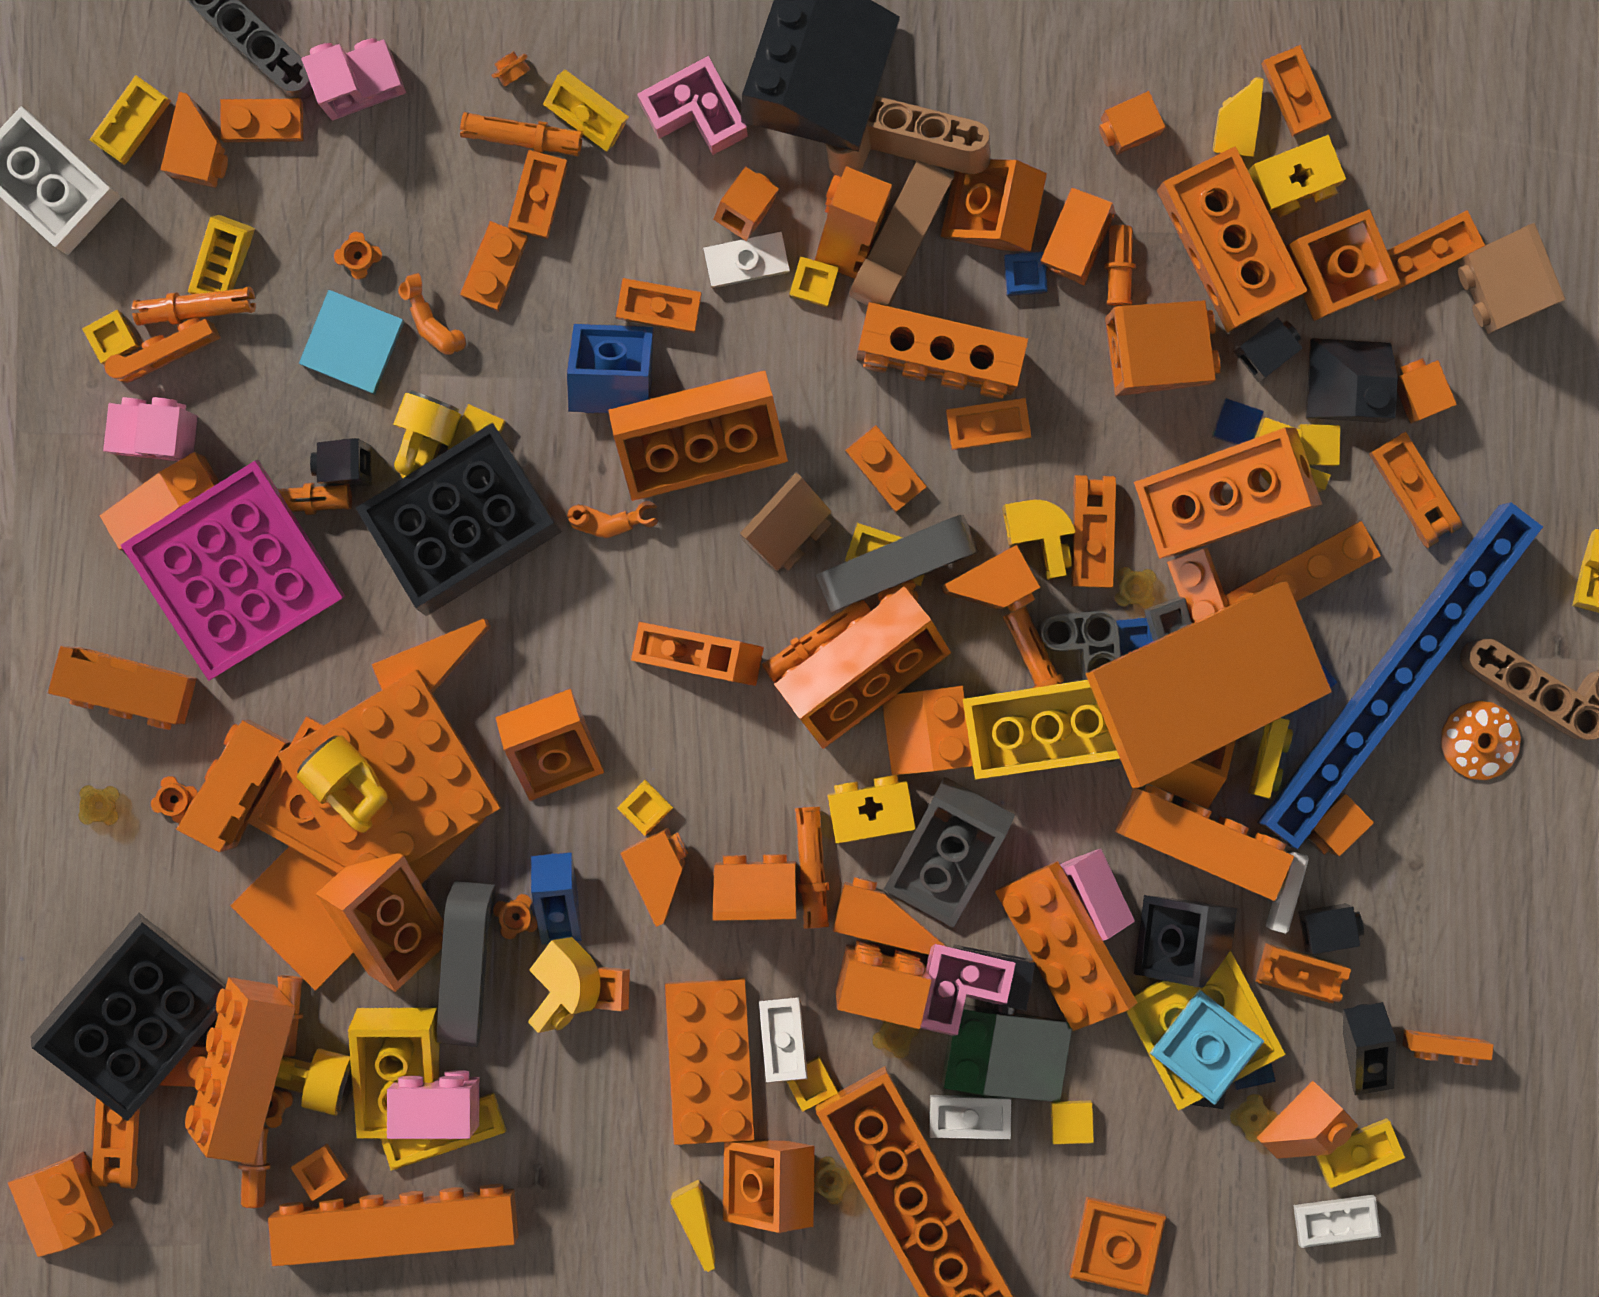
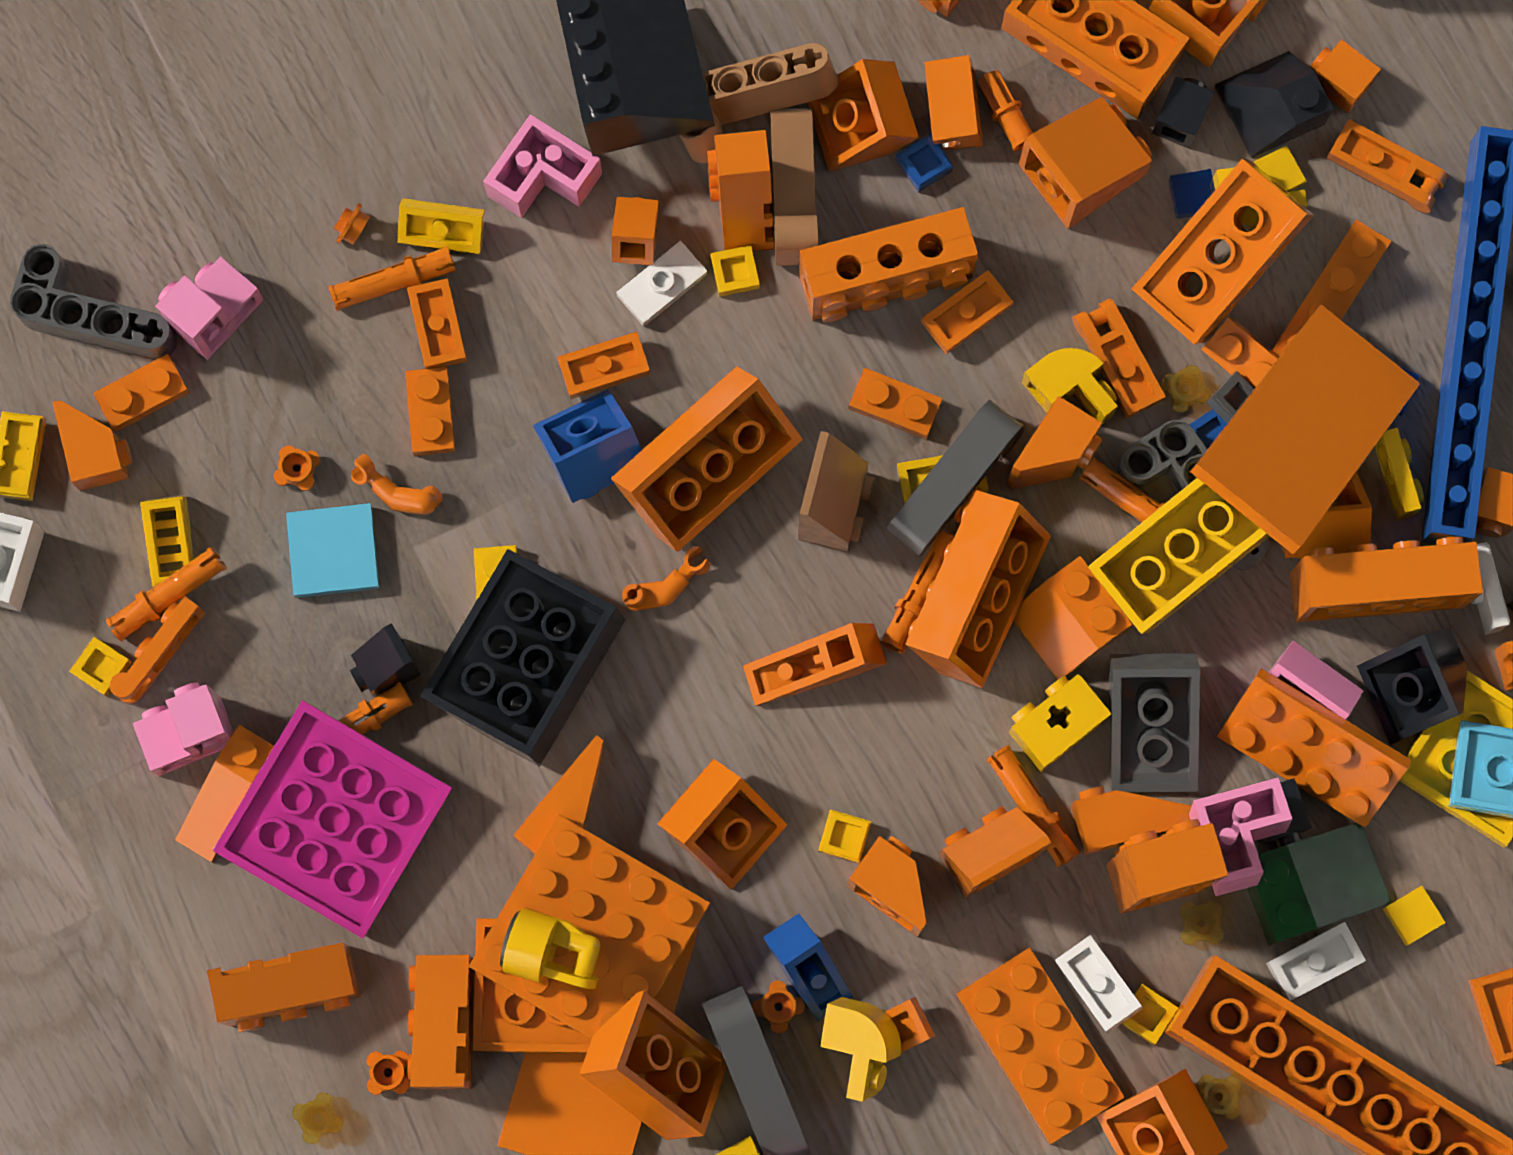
camera: 25 degrees left, 10 degrees down
(427, 426) = (447, 585): yellow piece -> none

